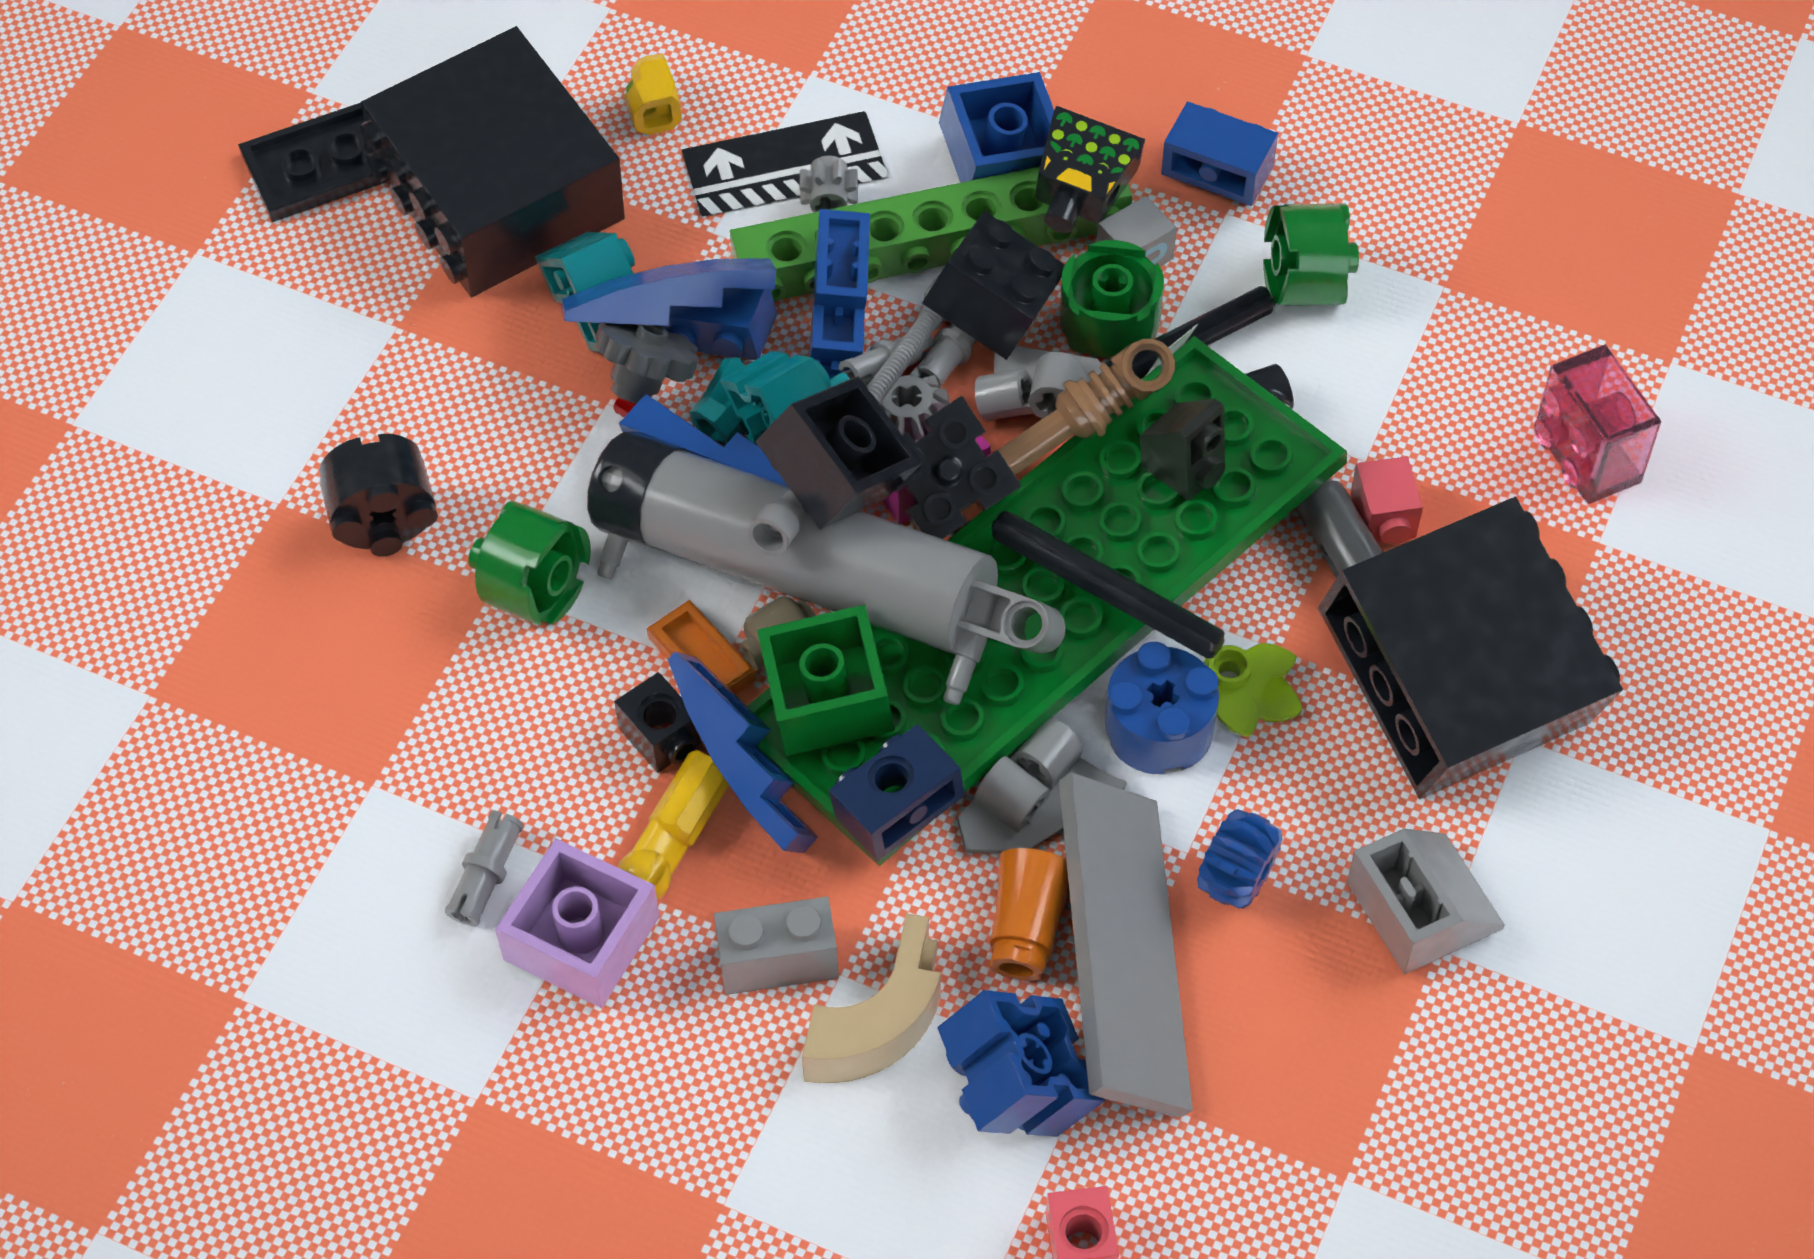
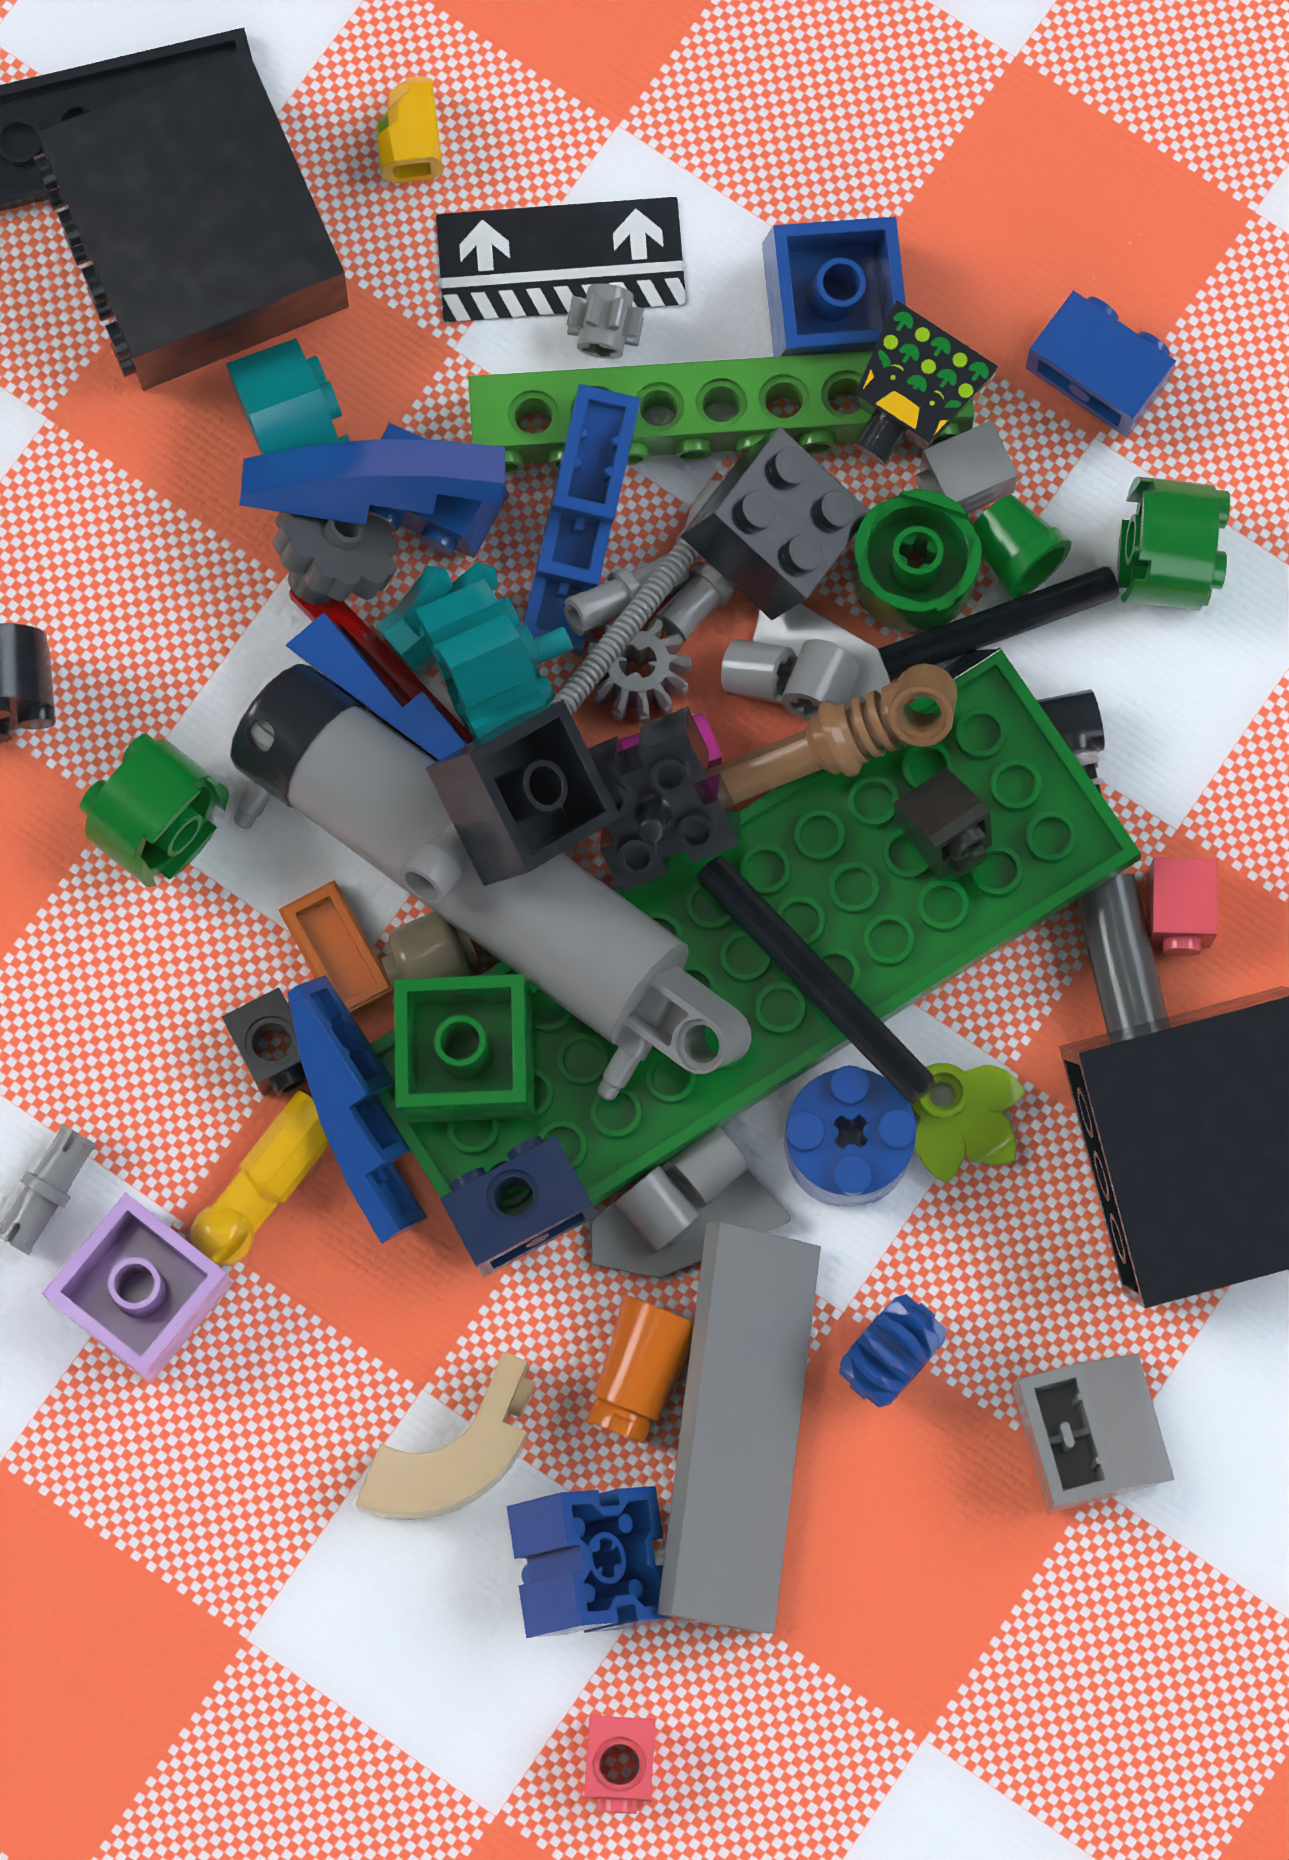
camera: 10 degrees right, 20 degrees up
(776, 945) = (353, 1353): light grey brick -> none
(1192, 281) = (1019, 546): none -> green piece

